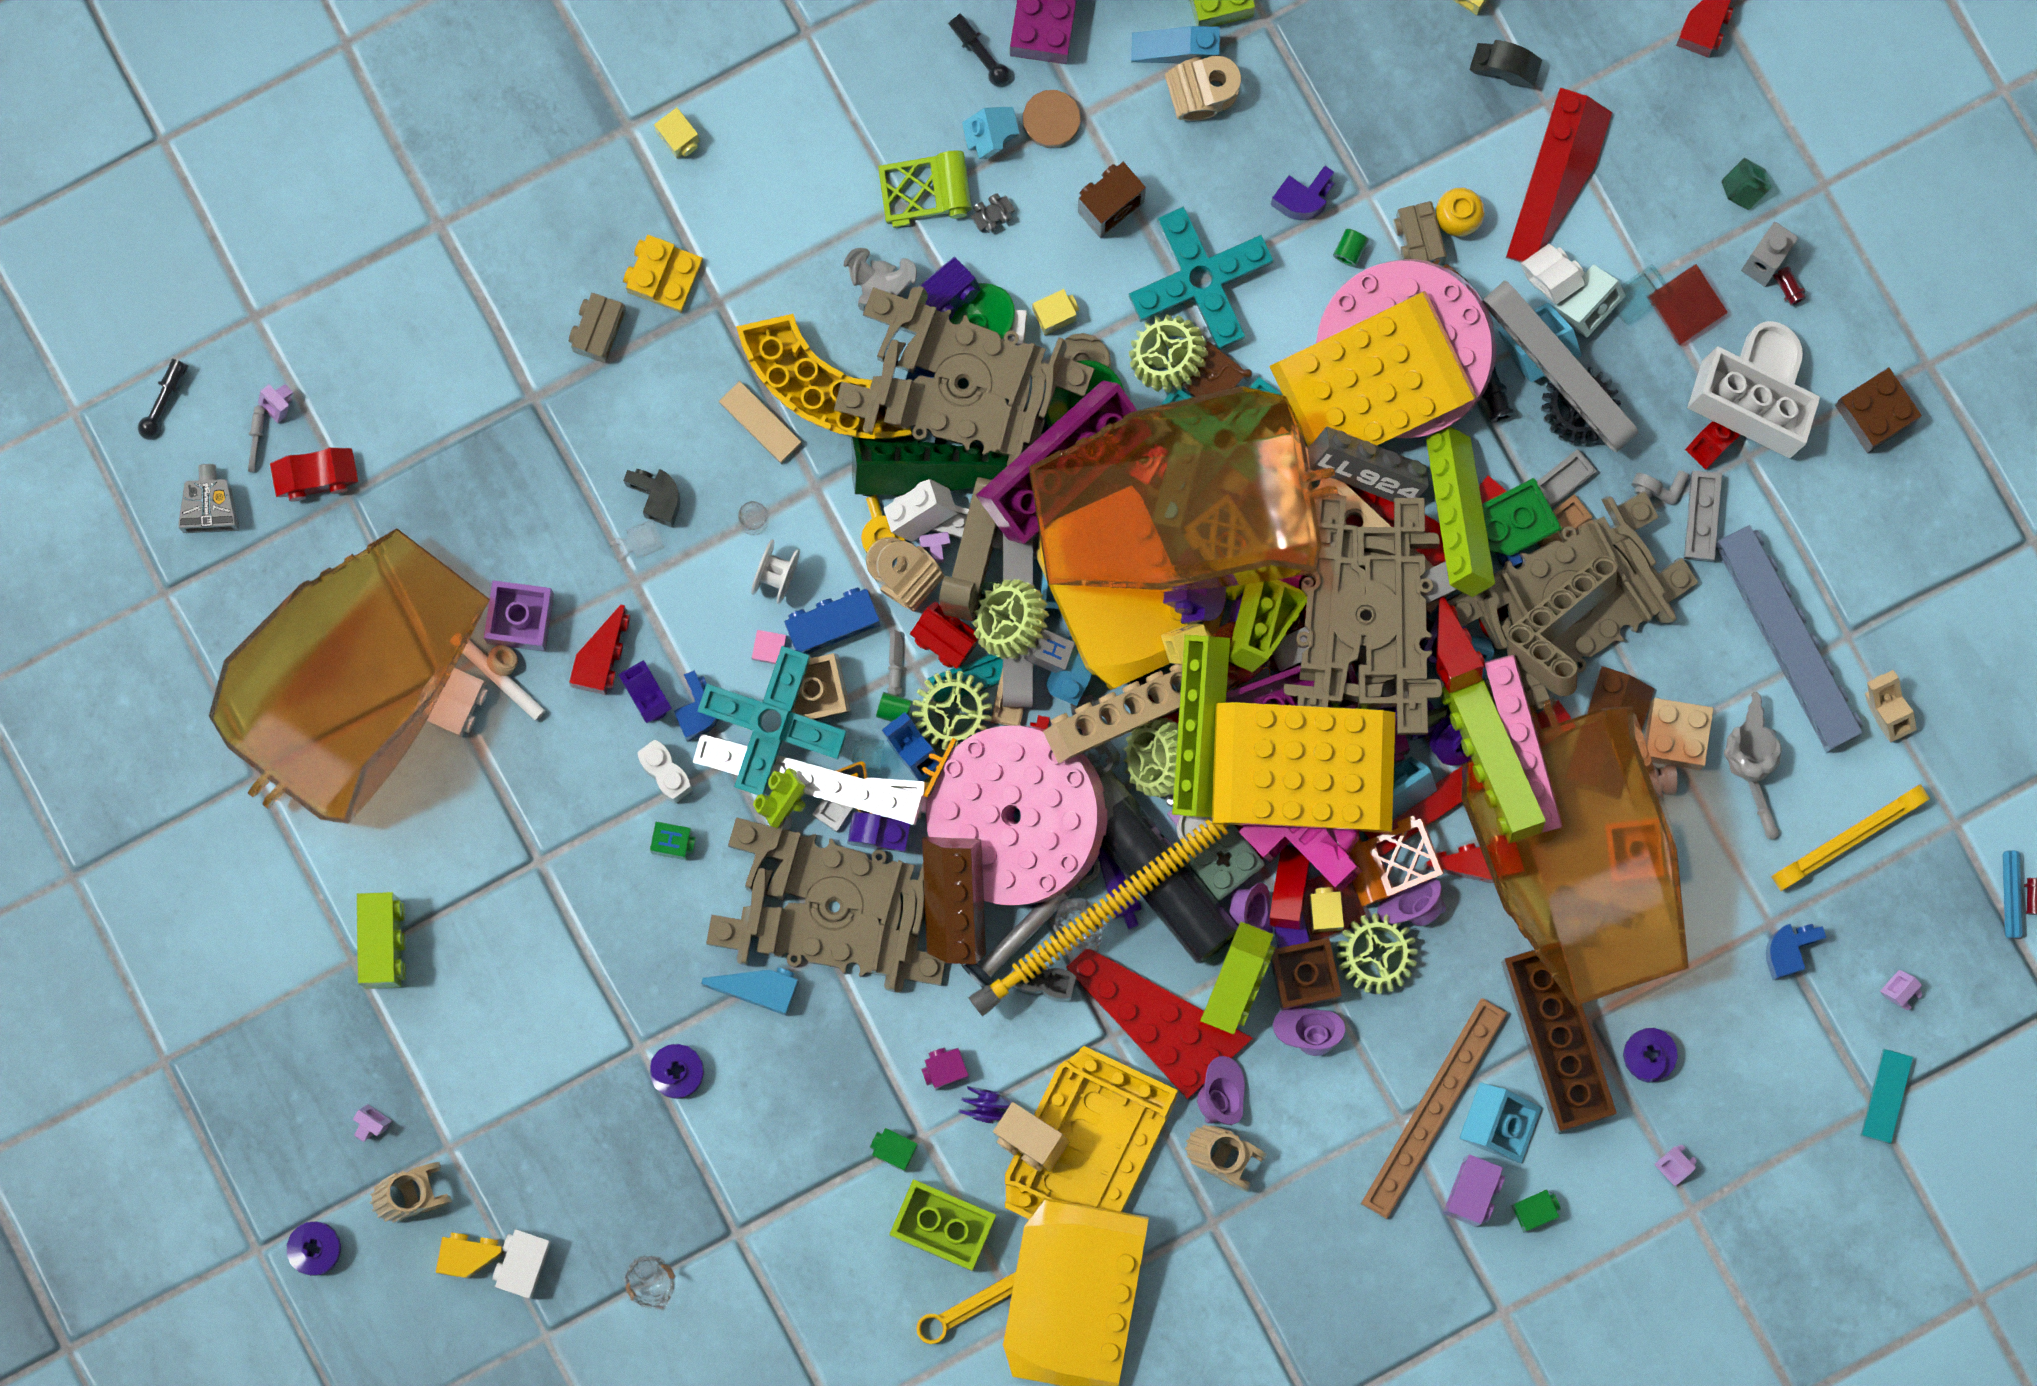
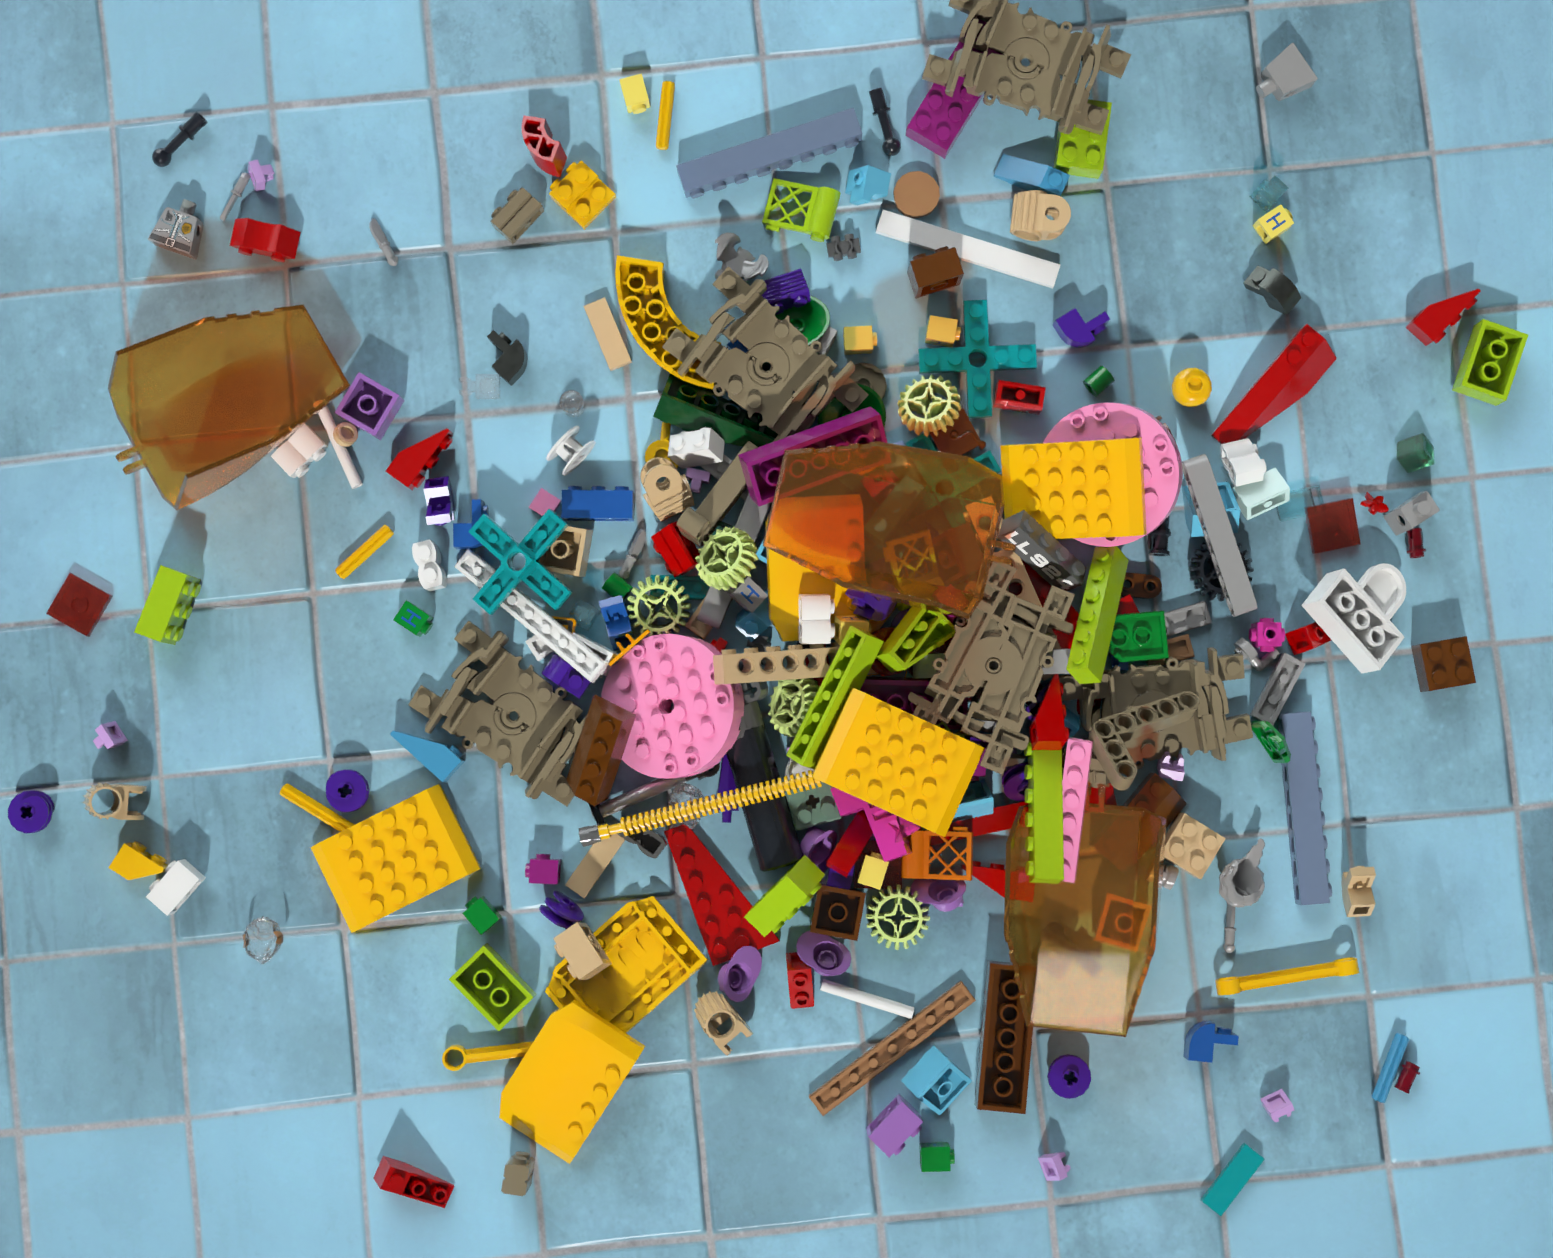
camera: 25 degrees right, 5 degrees up
(269, 986) = (79, 604): none -> clear red tile
(451, 420) = (383, 243): none -> light grey piece
(580, 788) = (364, 552): none -> yellow axle
(598, 239) = (544, 150): none -> red brick
(656, 1110) = (315, 808): none -> yellow axle
(722, 144) = (665, 115): none -> yellow axle
(764, 1126) = (395, 857): none -> yellow slope
(783, 799) = (505, 623): lime hips -> none
(862, 139) = (769, 153): none -> sand blue brick
(1000, 1038) = (594, 865): none -> tan tile
(1138, 156) = (968, 248): none -> white tile
(1140, 646) = (815, 618): none -> white brick
(1147, 263) = (942, 331): none -> light yellow brick
(1267, 302) = (1019, 397): none -> red brick
(1295, 1074) = (799, 982): none -> red bracket
(1381, 1063) = (867, 998): none -> white piece
(1419, 233) = (1154, 391): dark tan brick -> none
(1494, 462) = (1138, 586): none -> reddish brown plate
(1618, 656) = (1171, 769): none -> lavender tile
(1661, 468) = (1258, 636): none -> dark pink brick
(1719, 575) = (1272, 741): none -> green tile
(1725, 260) = (1375, 504): none -> red plant
(1786, 47) = (1490, 362): none -> lime brick

